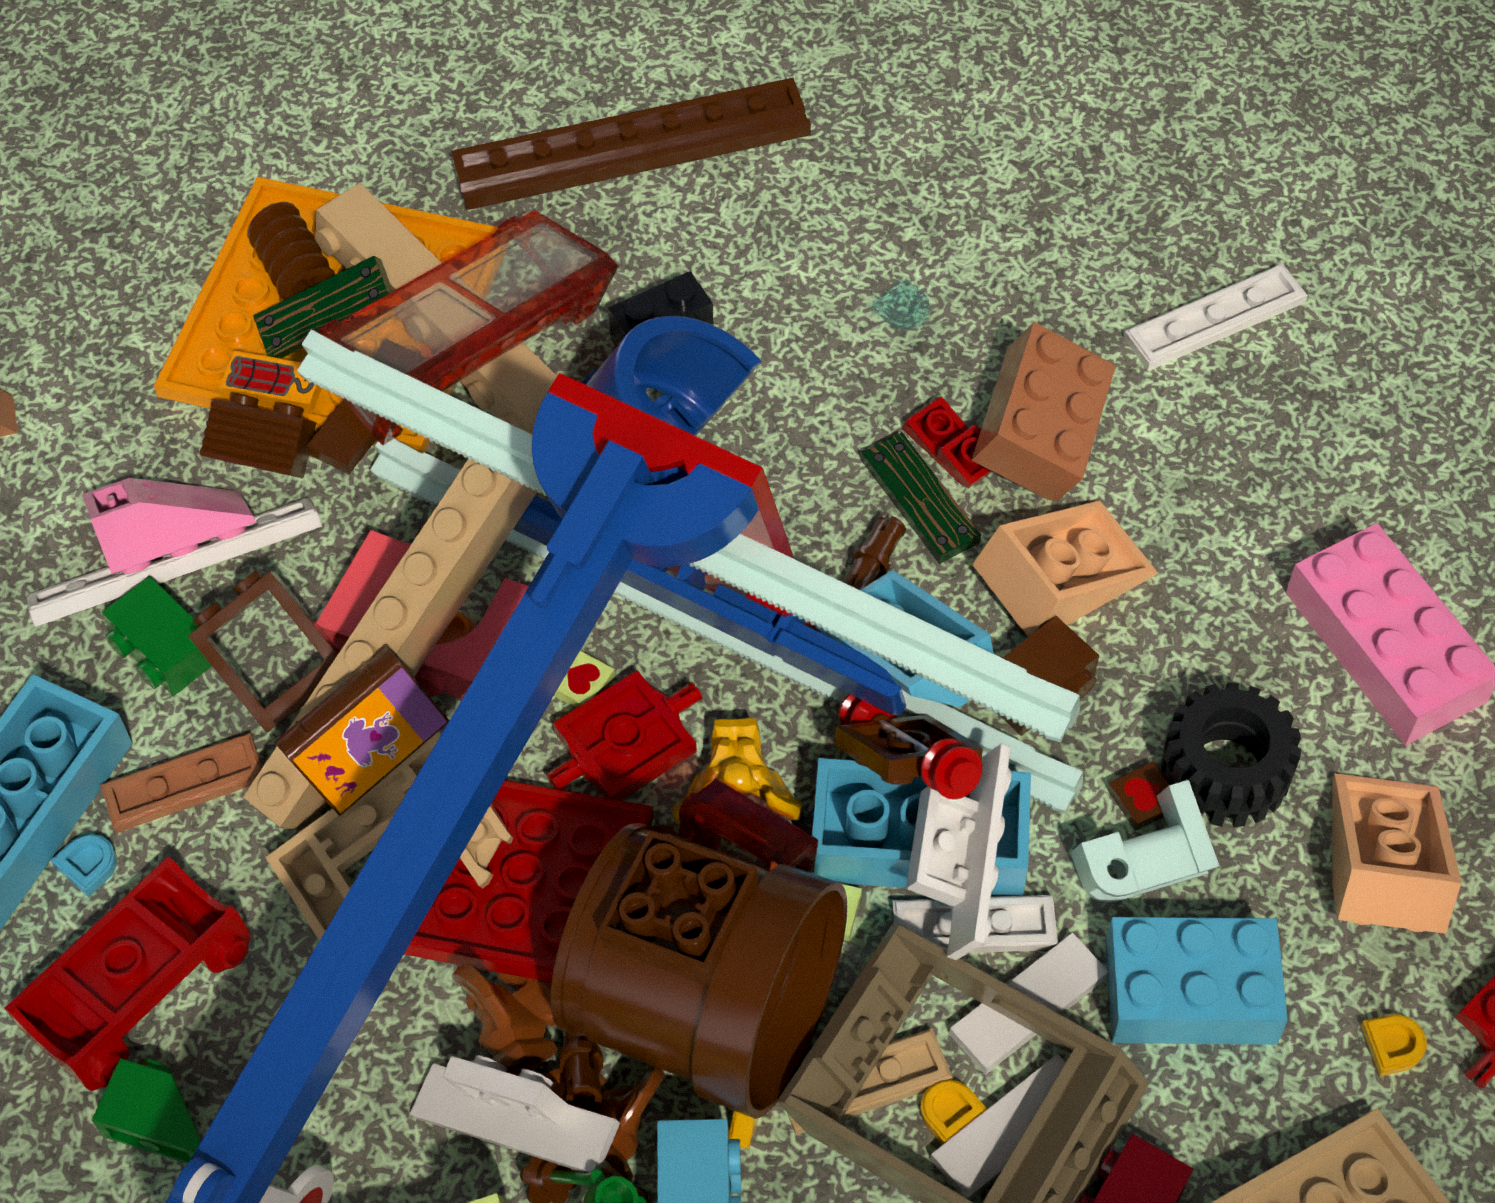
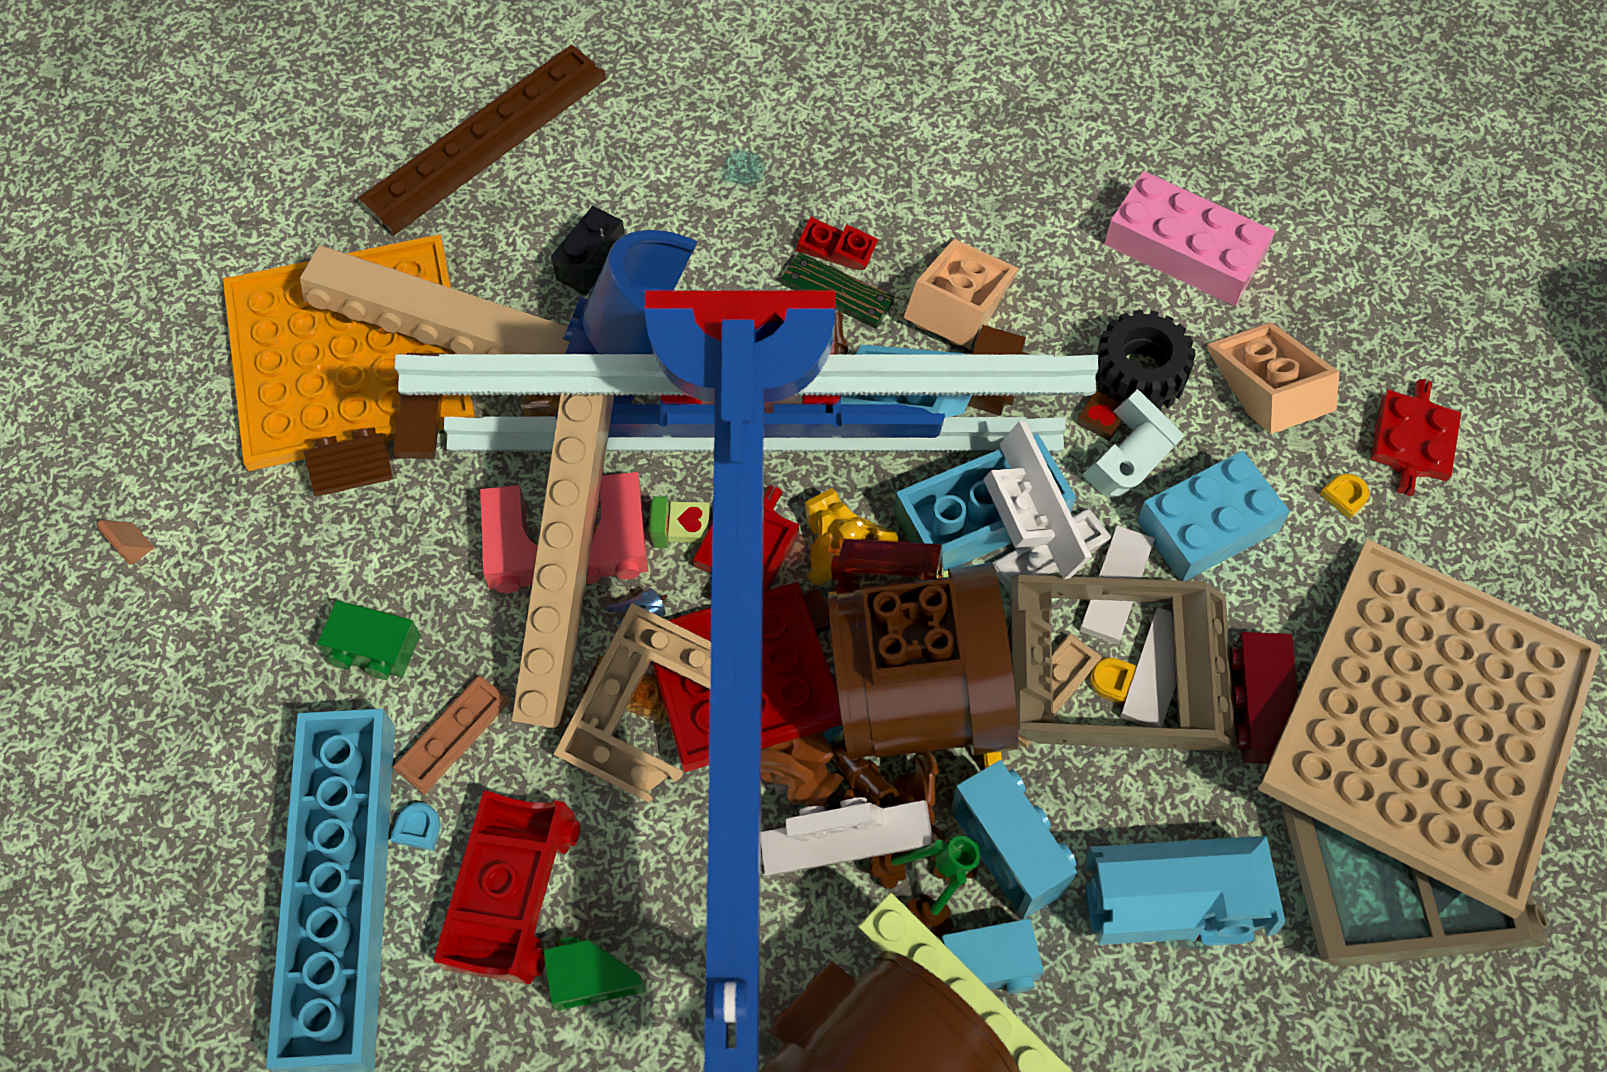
camera: 30 degrees left, 5 degrees up
(103, 586) = (340, 583): white tile -> none
(157, 518) = (312, 559): bright pink slope -> none
(216, 617) = (502, 625): reddish brown window -> none
(269, 381) = (335, 418): tile -> none
(287, 249) = (292, 321): reddish brown piece -> none
(338, 297) = (346, 347): dark green tile -> none
(362, 731) = (582, 628): piece -> none
(477, 306) = (456, 301): windscreen -> none
(909, 748) = (956, 455): plate -> none
(1044, 413) = (889, 195): nougat brick -> none
(1215, 317) = (949, 86): white tile -> none

